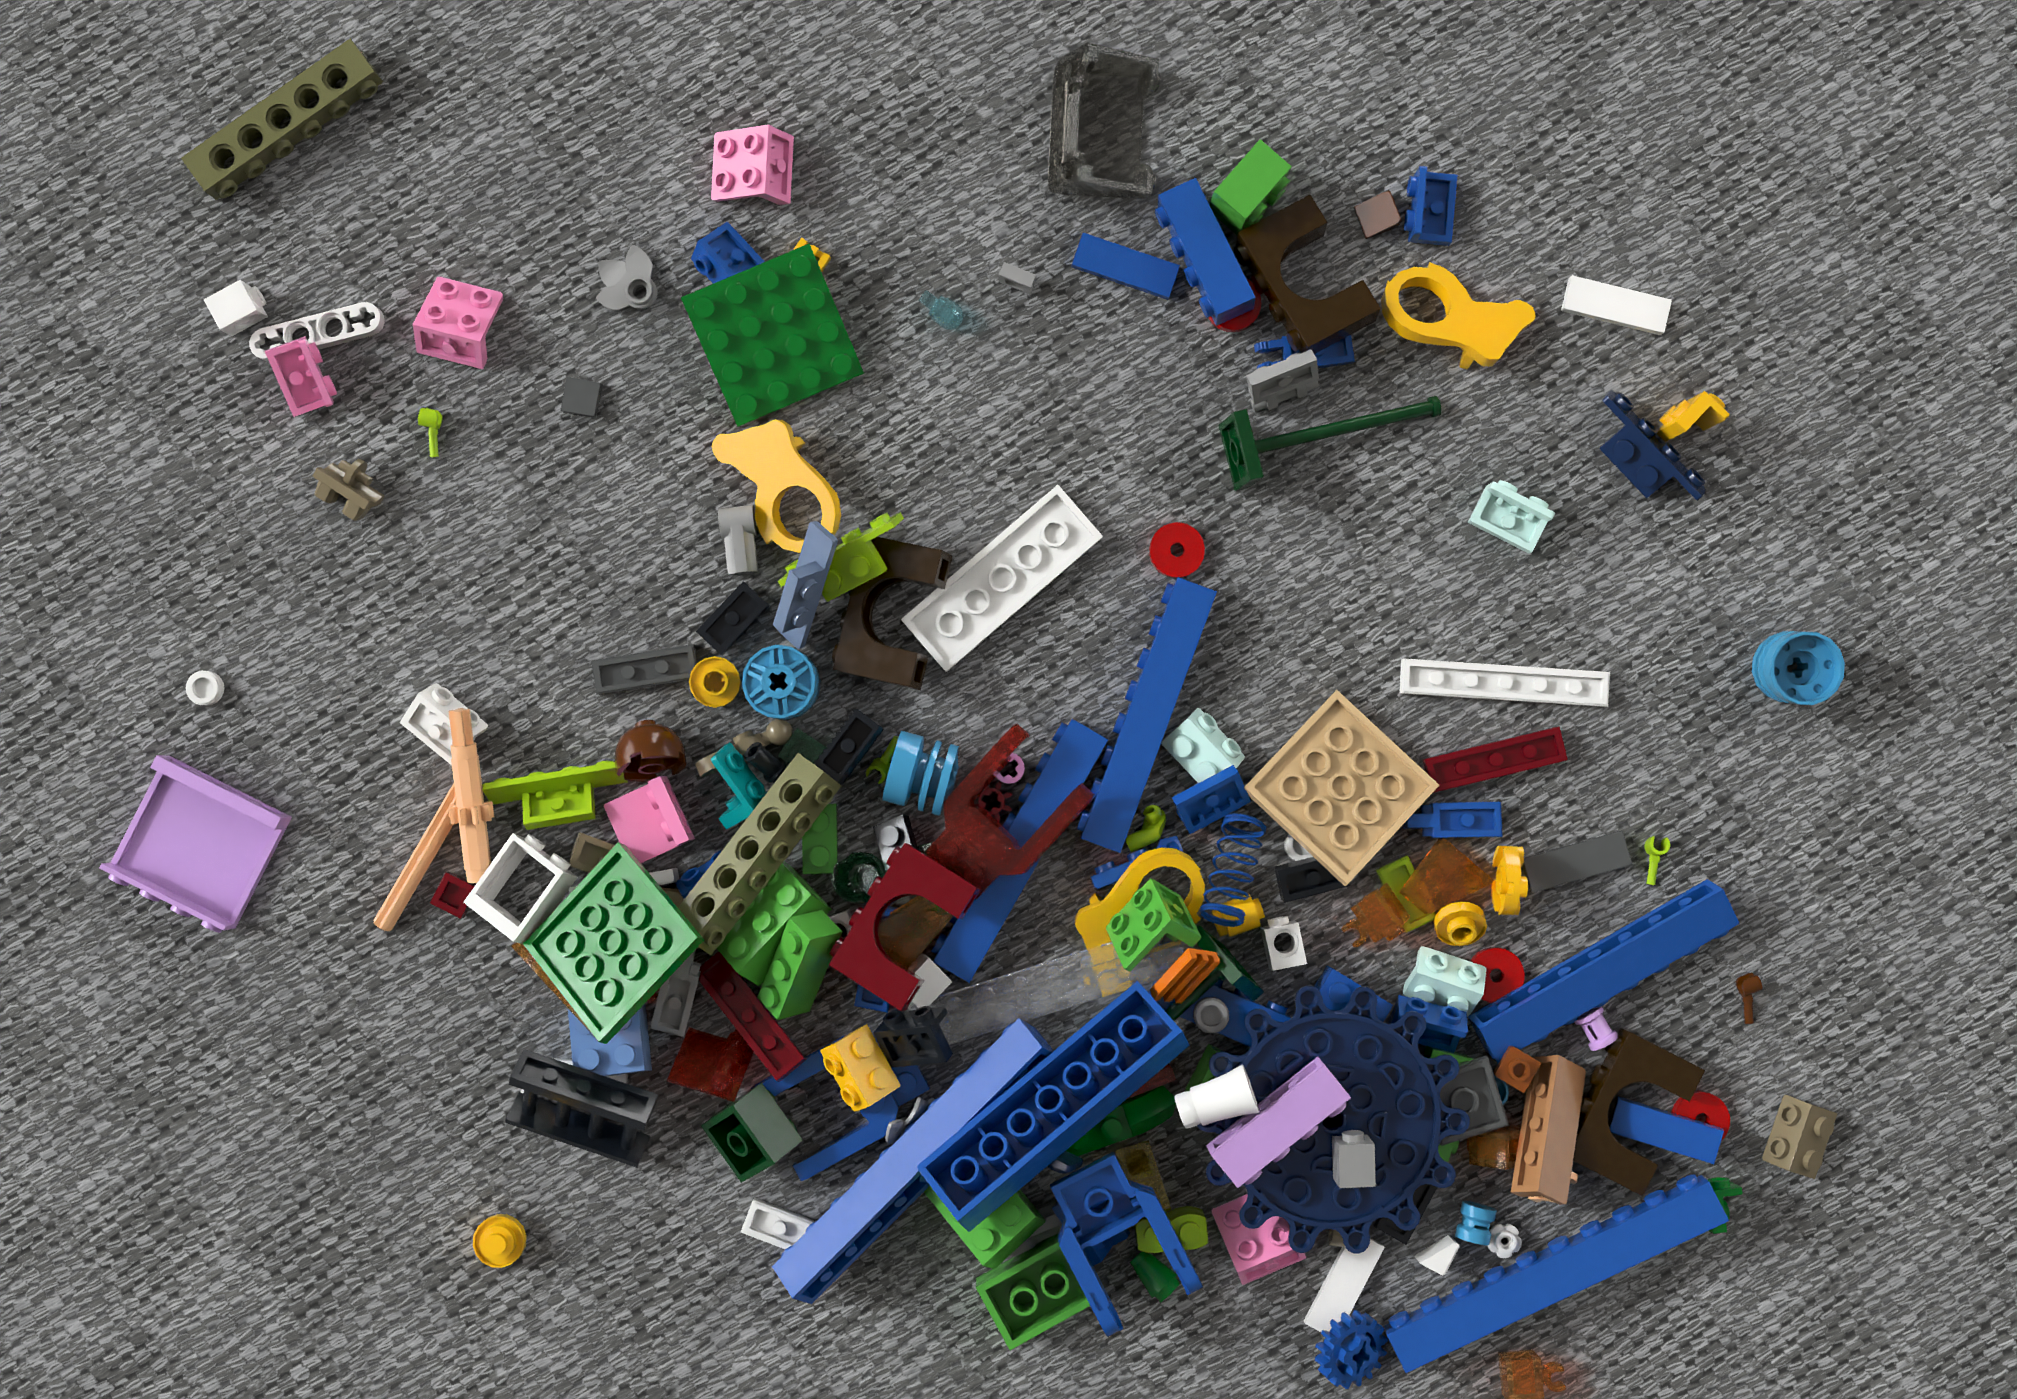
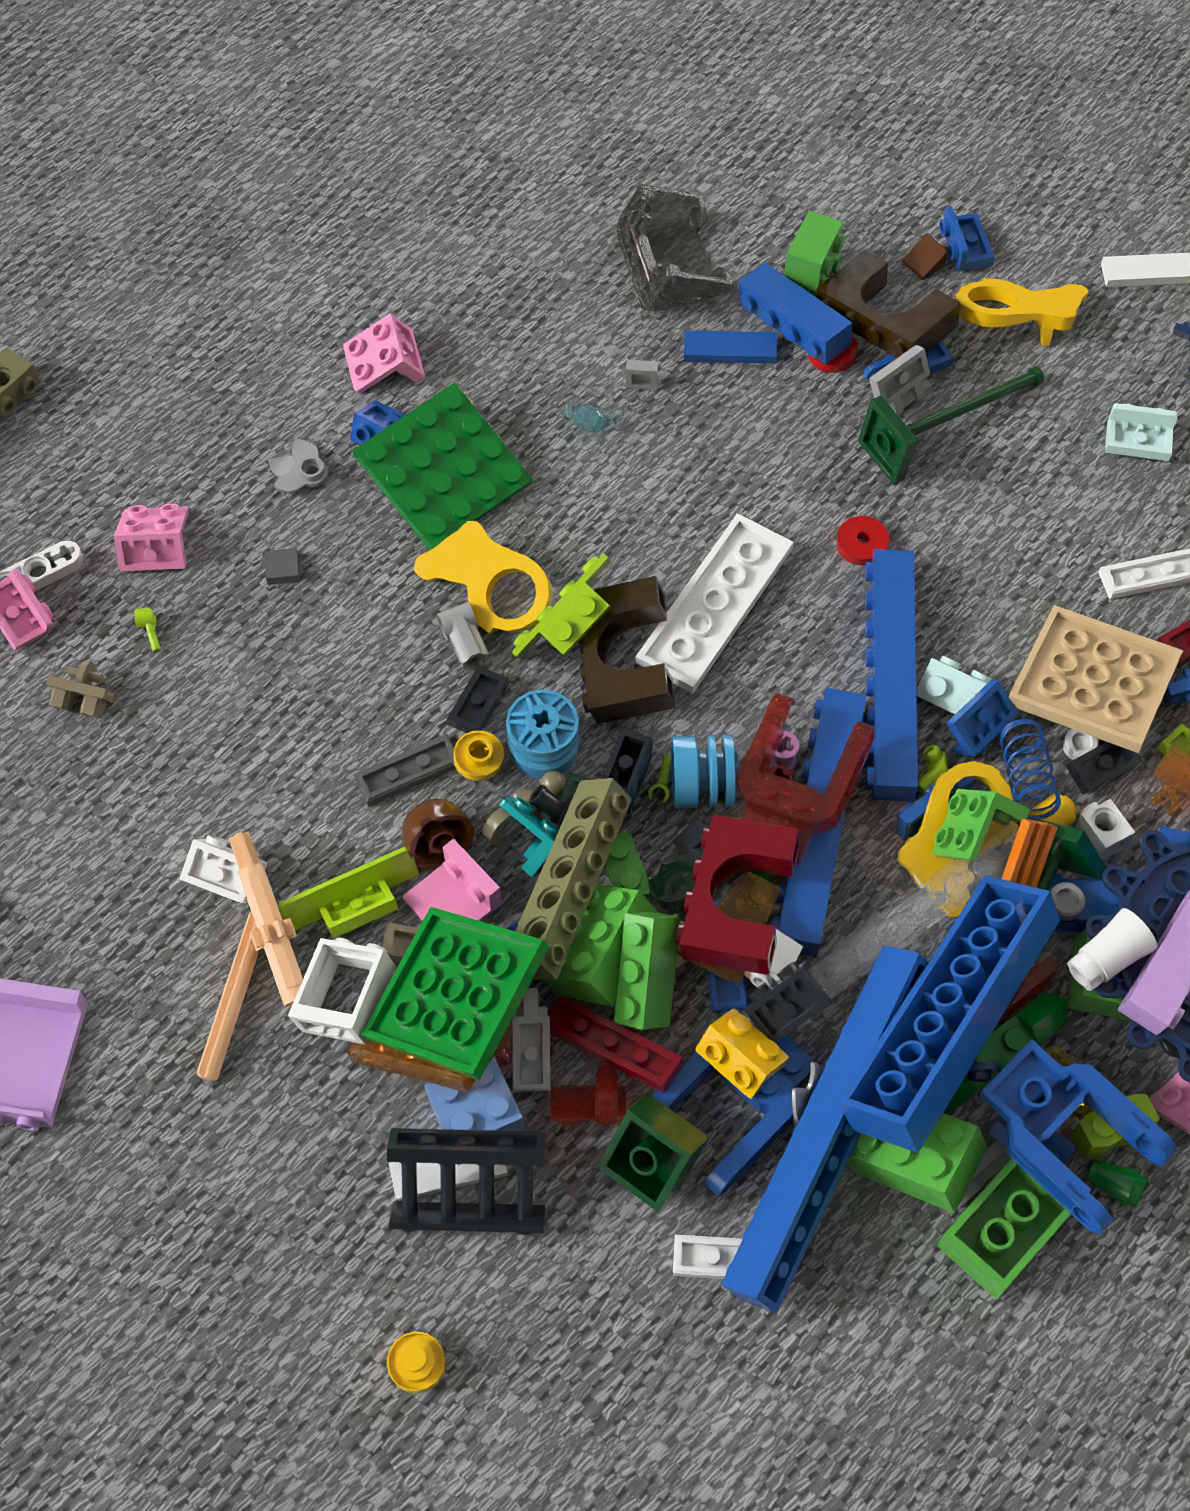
camera: 15 degrees left, 25 degrees down
(451, 895) = (273, 1023): dark red plate -> none
(805, 585) = (541, 631): sand blue bracket -> none

